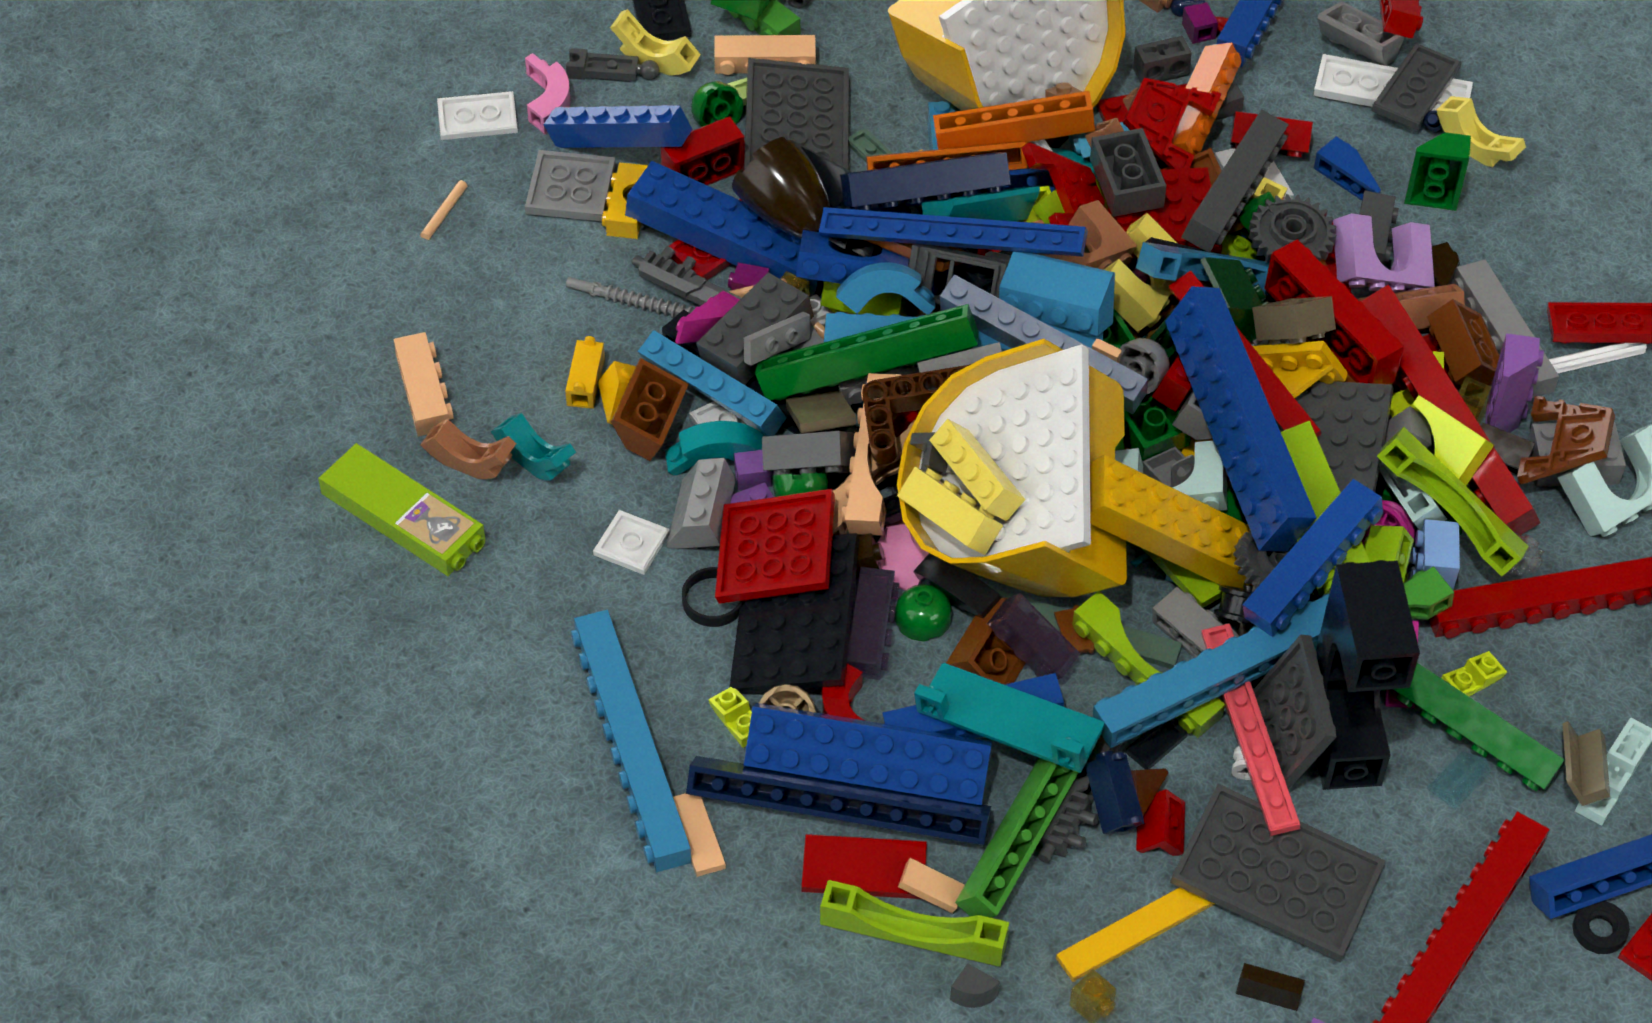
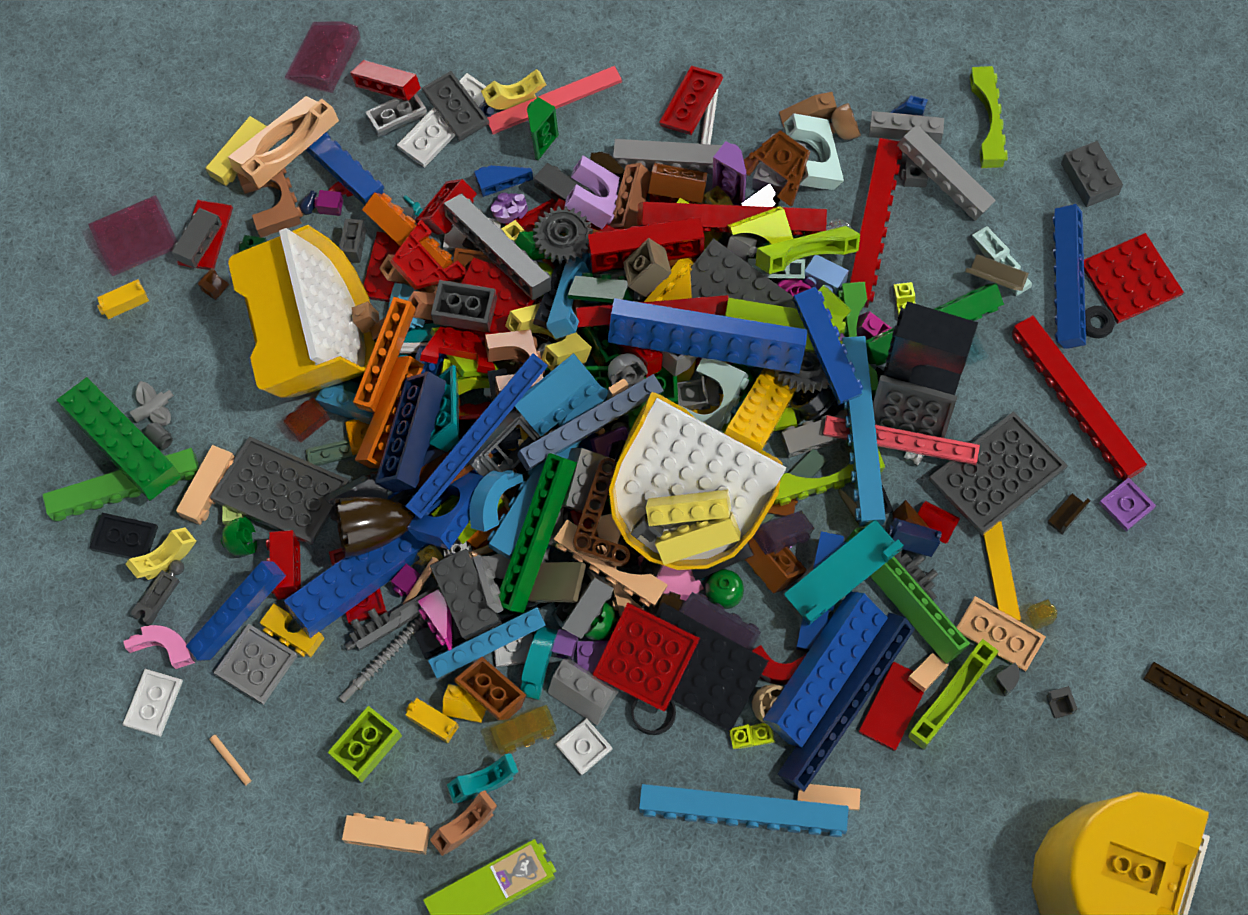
camera: 60 degrees left, 15 degrees up
(521, 318) = (365, 744): none -> lime brick
(619, 468) = (524, 730): none -> clear yellow brick
(900, 111) = (306, 419): none -> clear red brick
(1037, 958) = (1009, 636): none -> light nougat tile
(1252, 107) = (415, 205): none -> teal hand
(1316, 189) = (509, 207): none -> medium lavender plate
(1520, 195) = (557, 98): none -> coral tile

